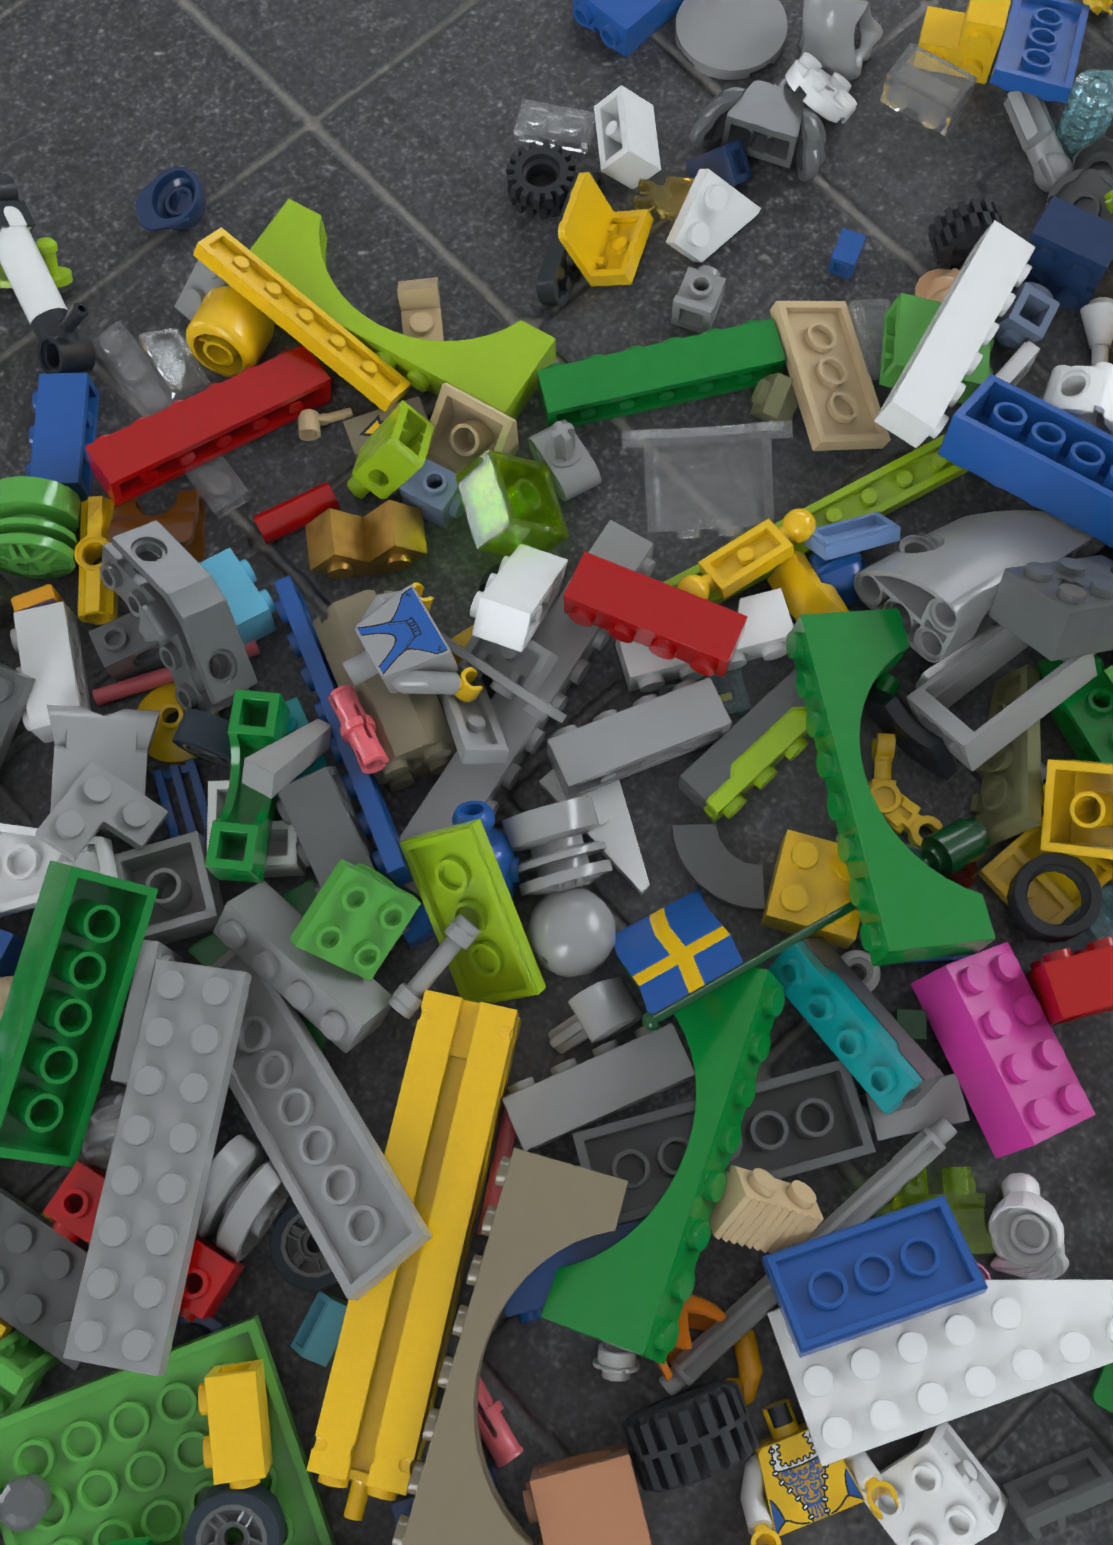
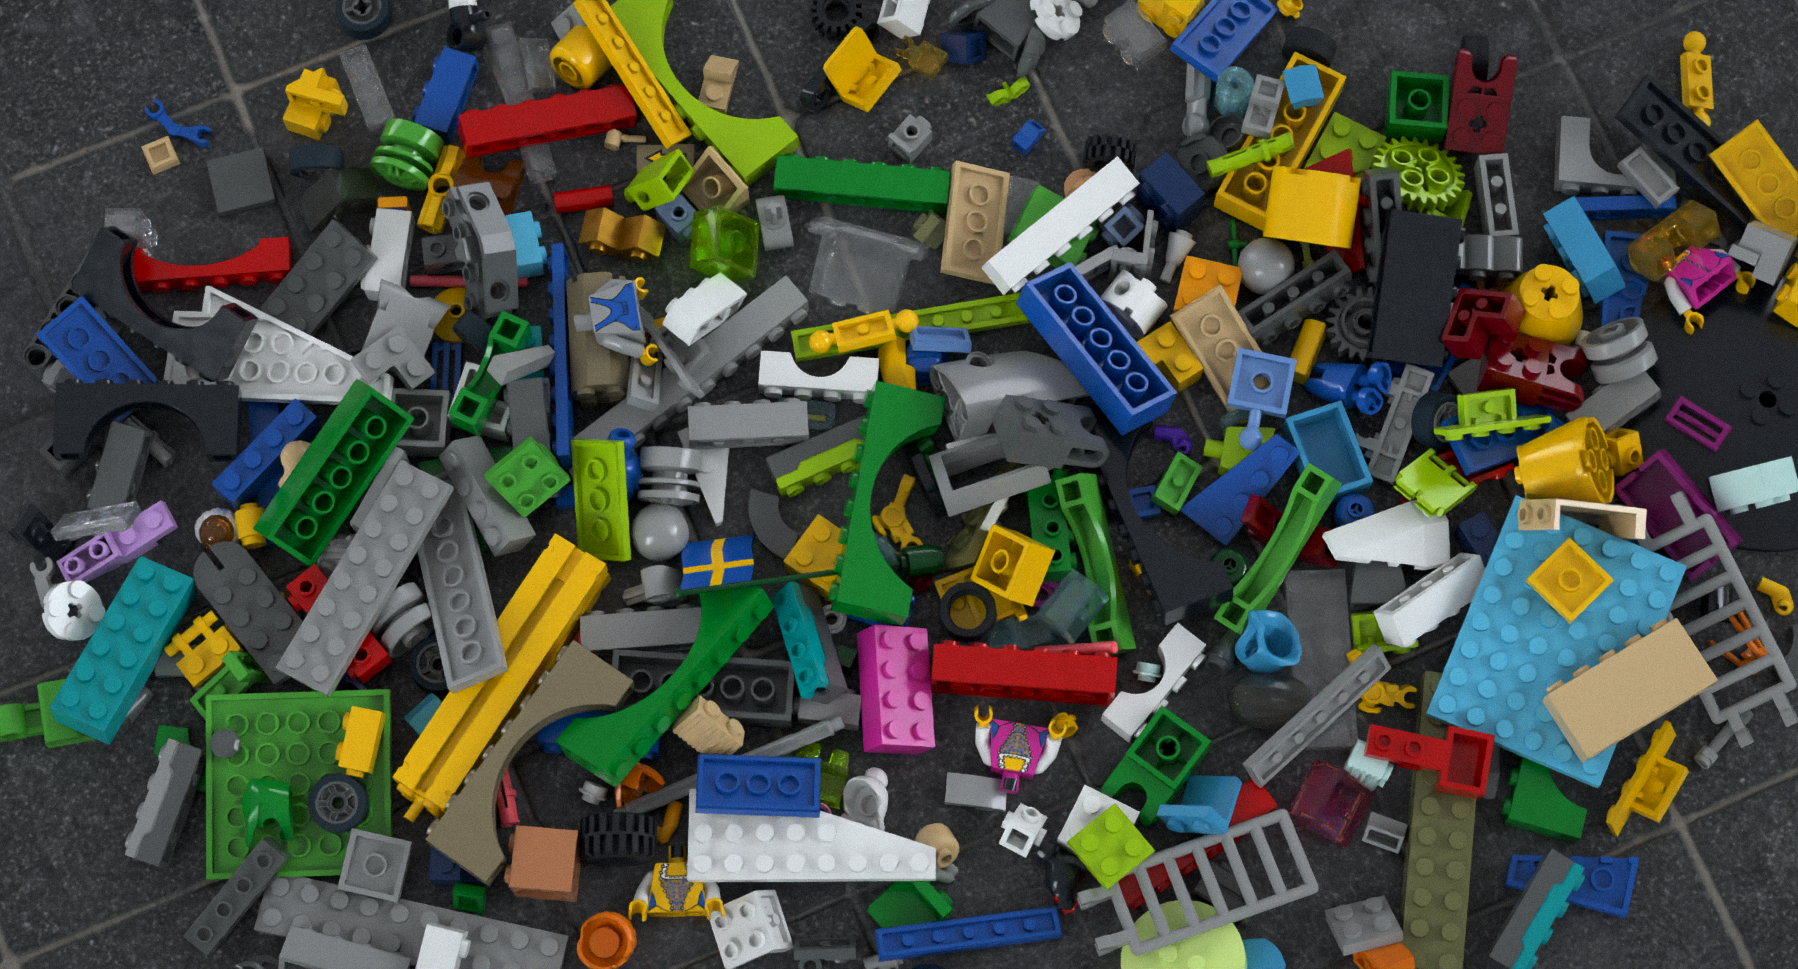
camera: 15 degrees right, 0 degrees up
(358, 729) = (570, 360): coral pin -> none
(409, 997) = (588, 507): light grey bar -> none
(653, 615) = (785, 349): red brick -> none
(709, 216) = (940, 81): white wing -> none
(796, 210) = (1008, 93): none -> lime piece
(1066, 340) = (1135, 262): none -> light grey bracket

